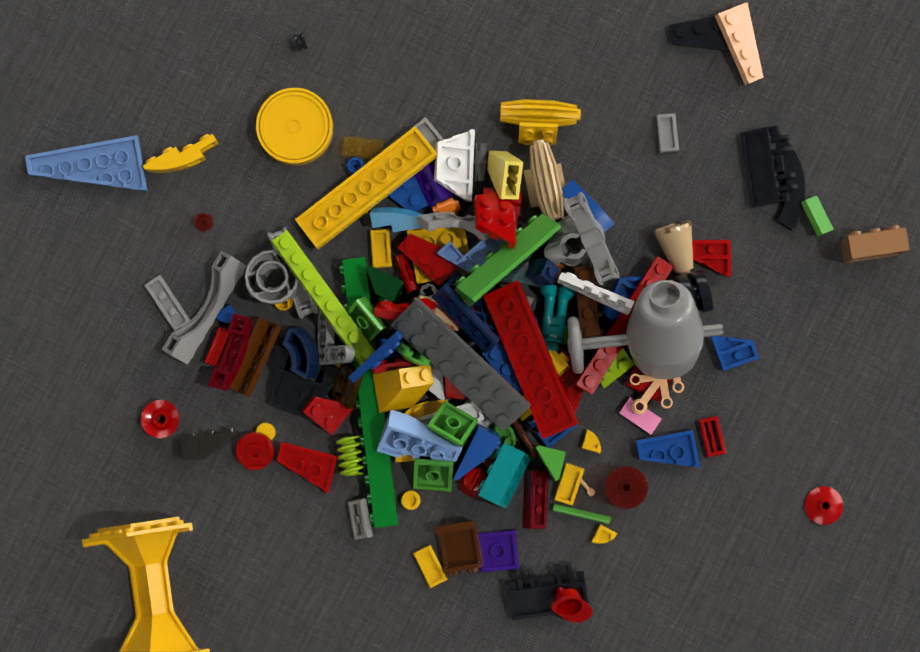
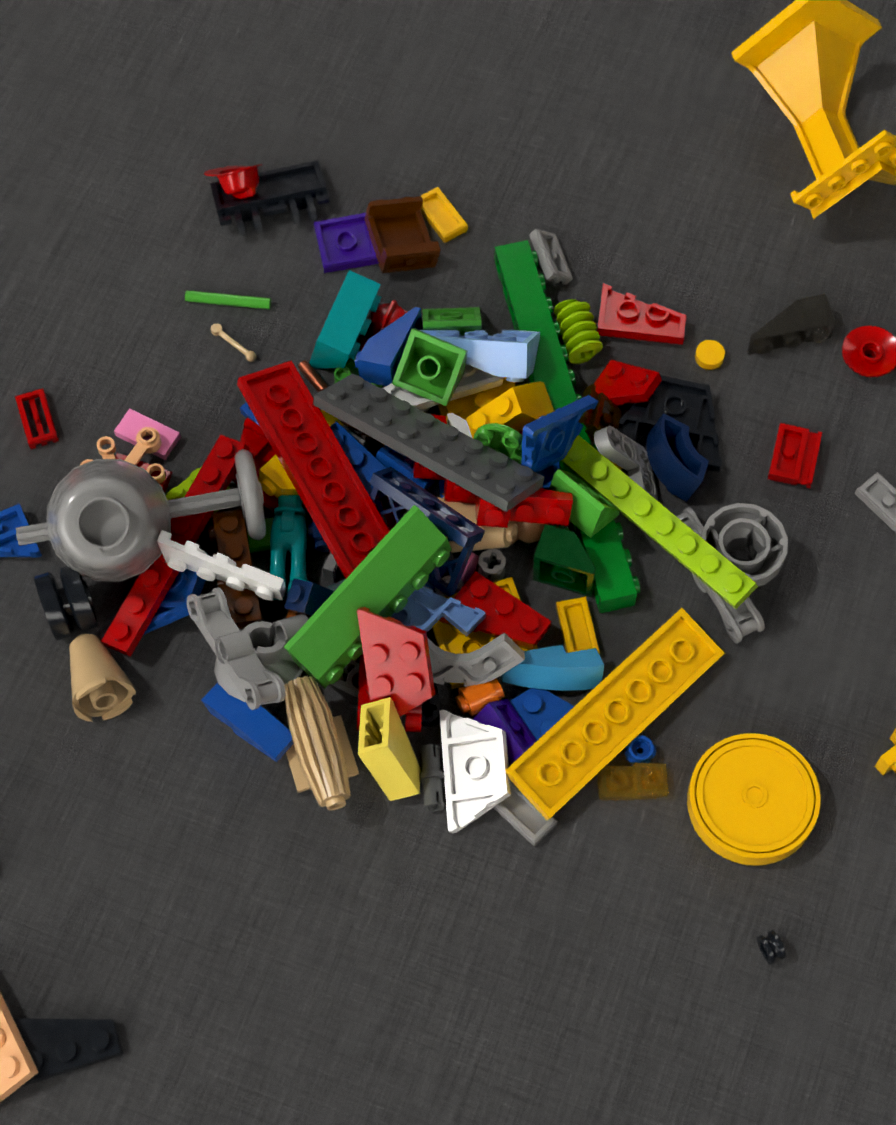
camera: 170 degrees right, 20 degrees down
(185, 341) = (858, 456): light grey arch -> none
(204, 217) = (873, 629): clear red plate -> none
(226, 314) = (800, 505): blue tile -> none
(234, 353) = (781, 436): dark red slope -> none
(255, 450) = (720, 326): red tile -> none
(258, 340) = (753, 451): reddish brown fence -> none
(406, 273) = (530, 591): red pin -> none
(410, 500) = (480, 291): yellow tile -> none
(535, 499) = (297, 311): dark red slope -> none
(539, 118) = (339, 858): yellow plate -> none
(552, 459) = (275, 346): bright green slope -> none
(569, 484) = (248, 332): yellow tile -> none
(591, 442) = (219, 392): yellow tile -> none
(603, 535) = (194, 277): yellow tile -> none
(614, 487) = (164, 330): clear red wheel -> none
(667, 133) = (118, 864): light grey tile -> none
(670, 449) = (96, 394): blue wing -> none
(713, 255) = (36, 674): red wing -> none

